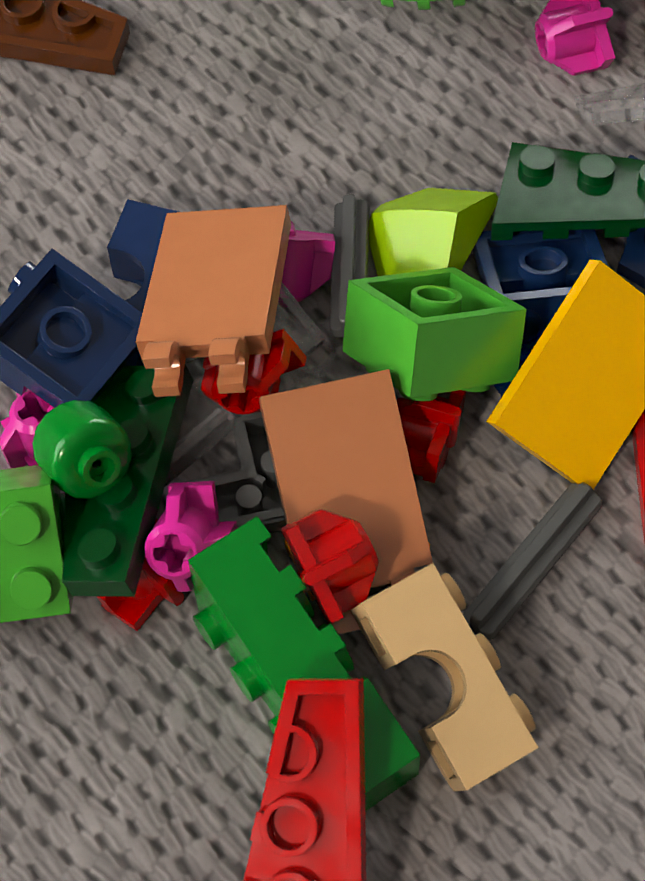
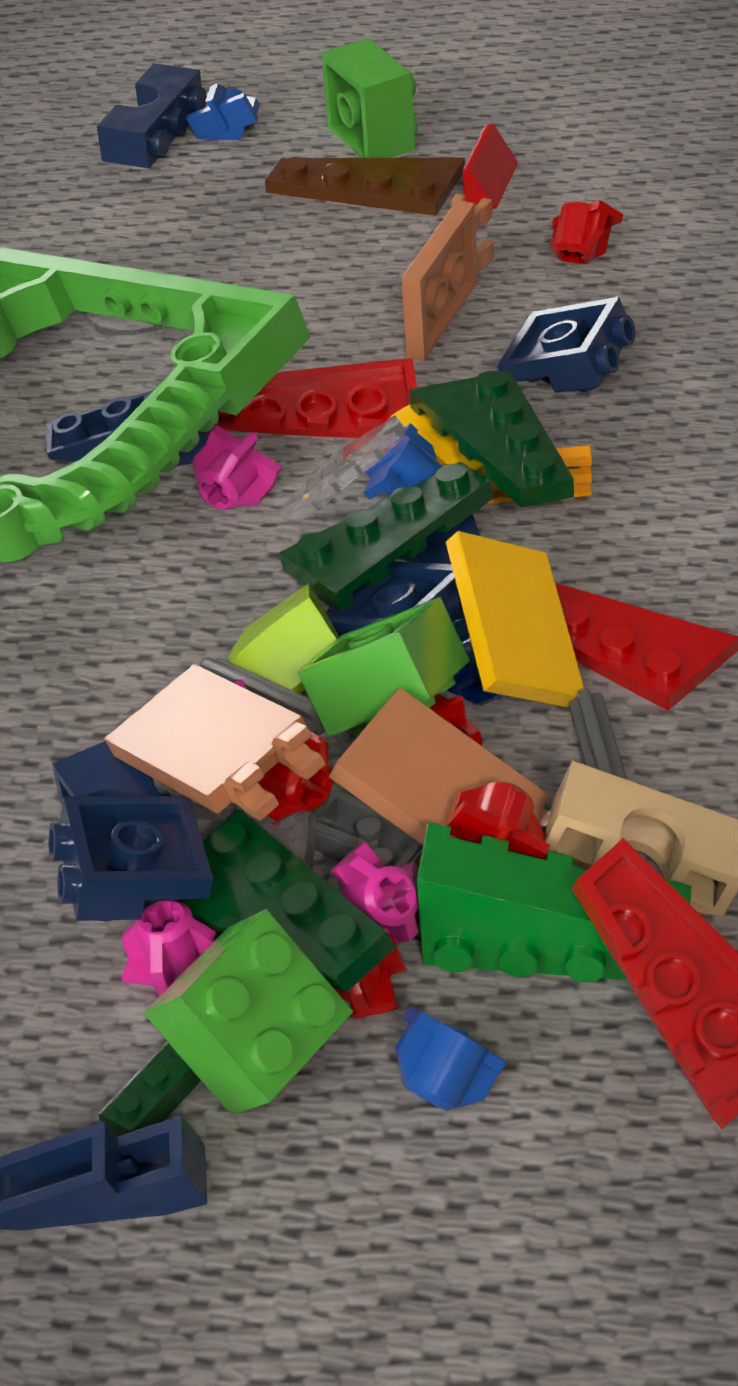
camera: 45 degrees left, 20 degrees down
(78, 445) = (247, 882): green head -> none
(93, 714) = (444, 1063): none -> blue piece

